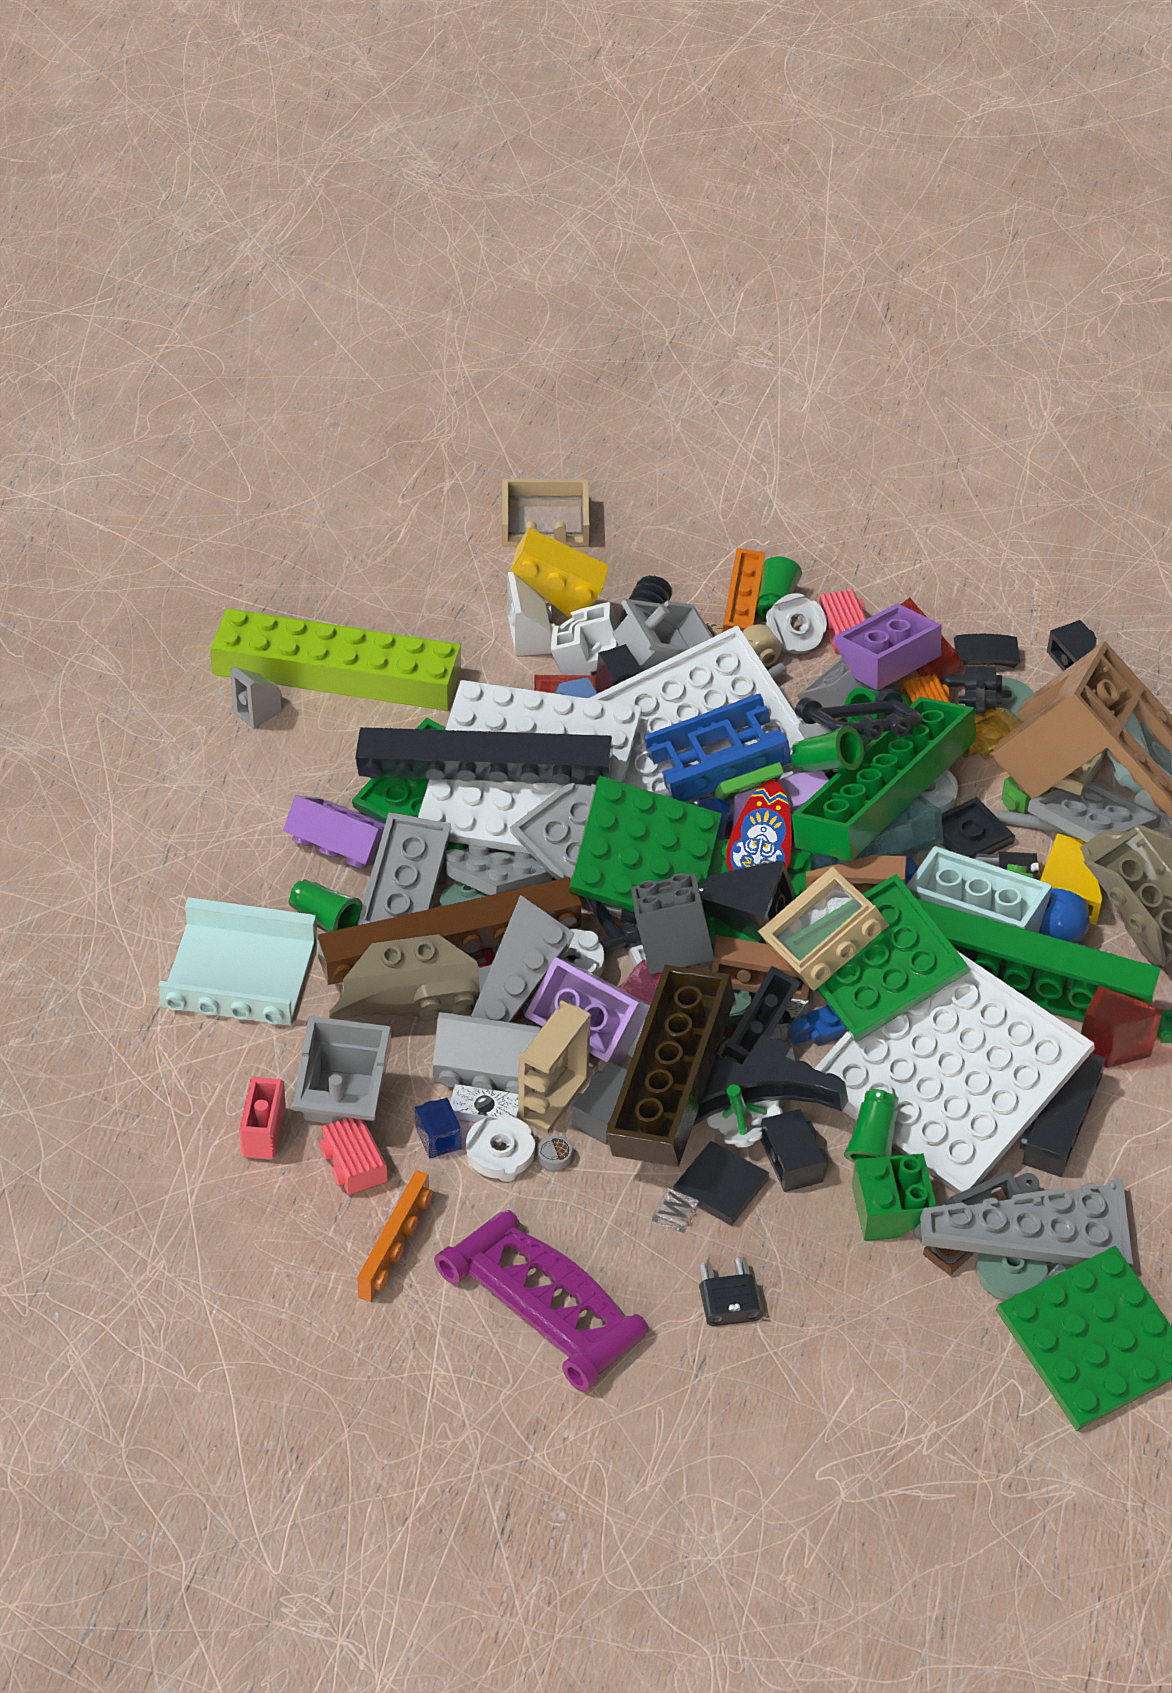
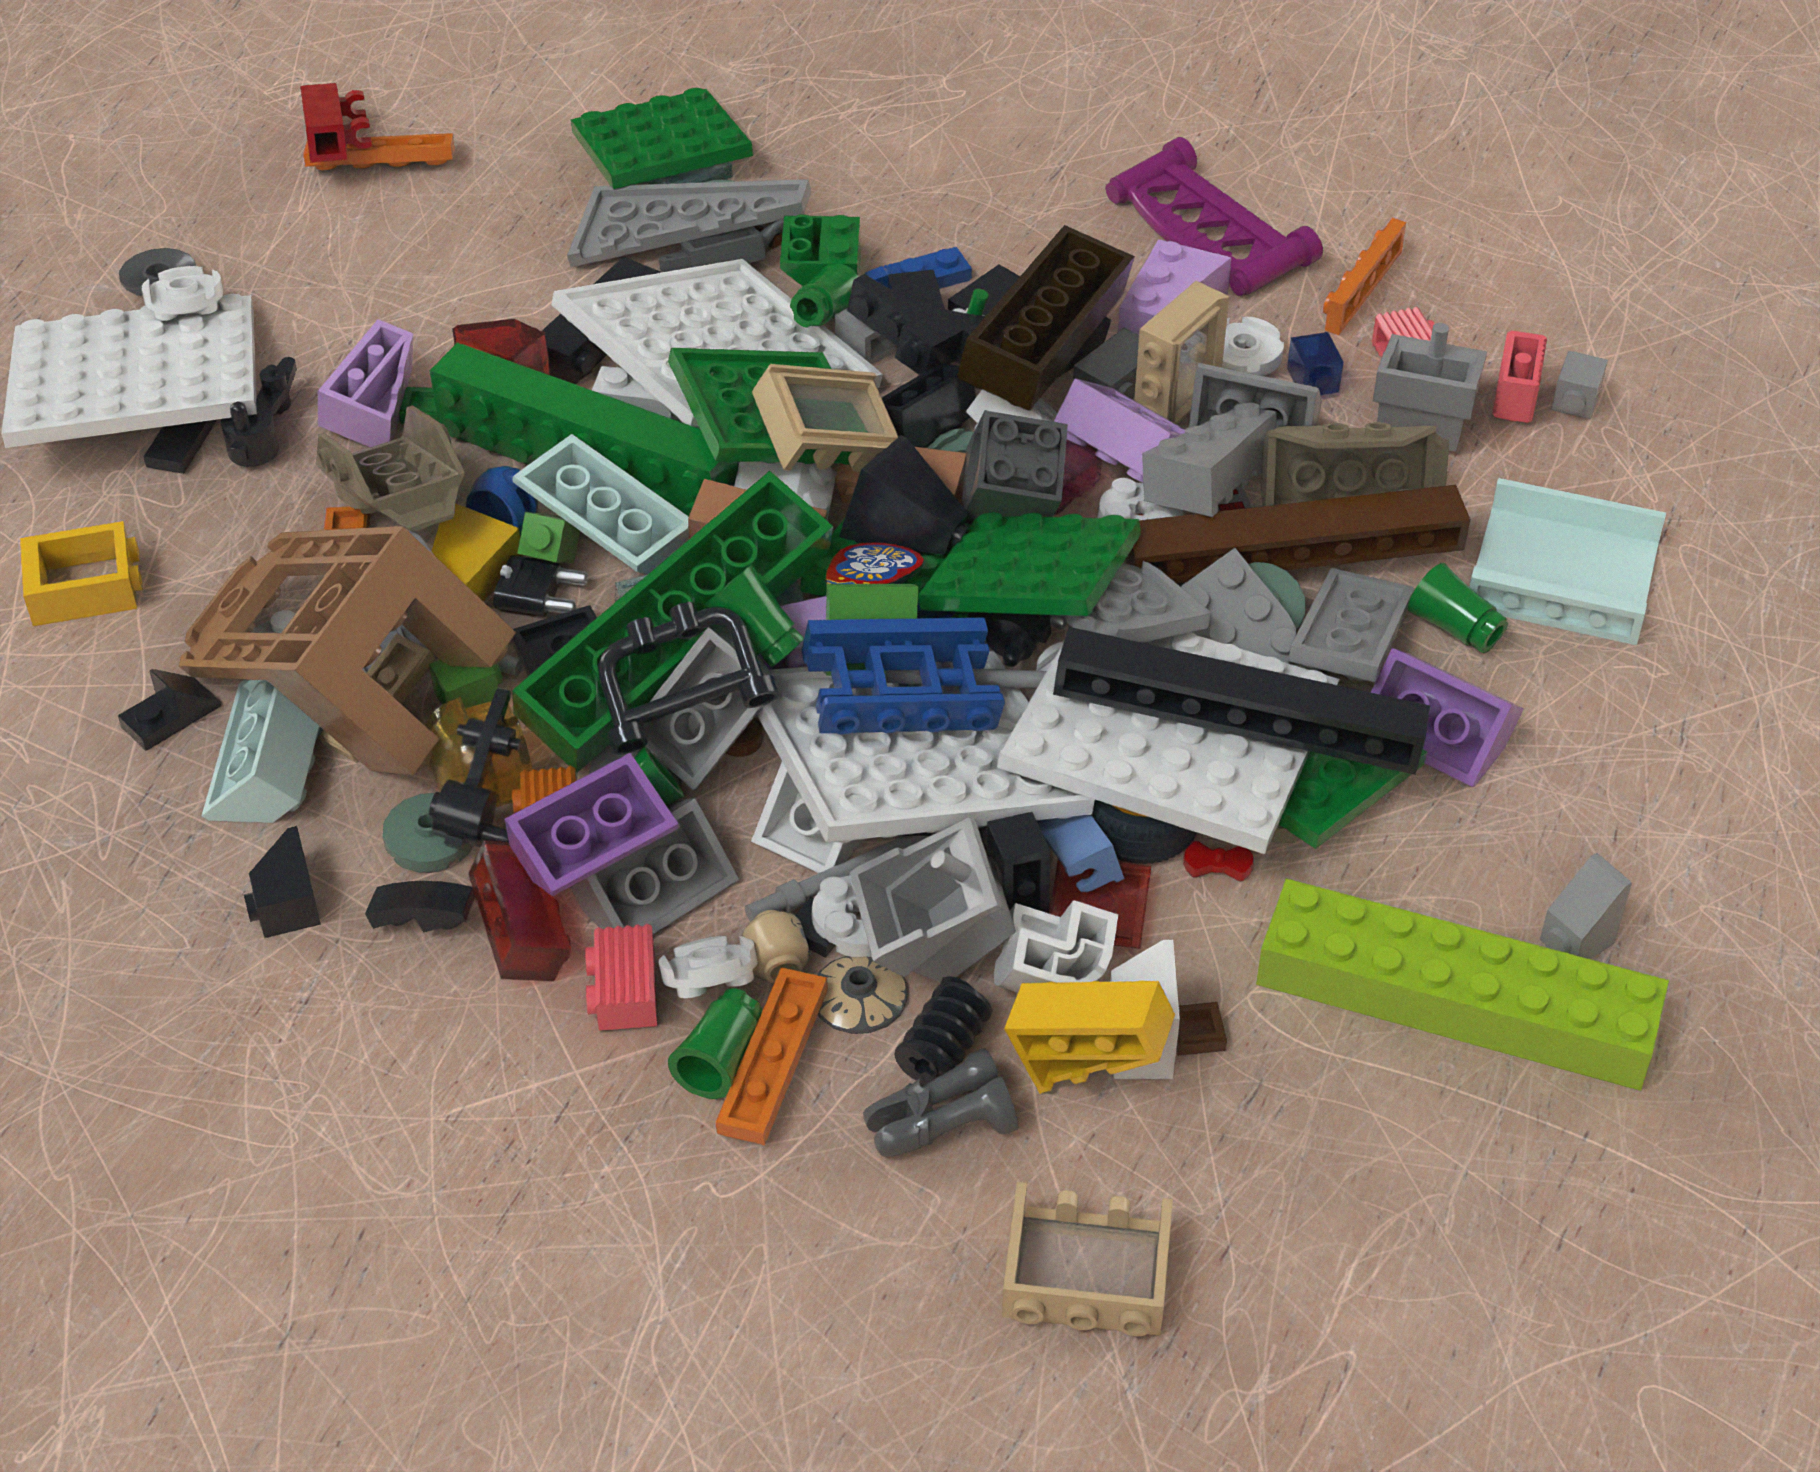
camera: 170 degrees left, 0 degrees up
(209, 1130) = (1579, 384): none -> light grey brick
(495, 636) = (1200, 1029): none -> reddish brown tile
(570, 1189) = (1165, 276): none -> lavender wedge
(625, 573) = (907, 1117): none -> dark grey piece
(730, 1298) = (1015, 208): black piece -> none
(802, 1208) = (948, 265): none -> blue hinge
(832, 1126) = (862, 338): none -> light grey brick

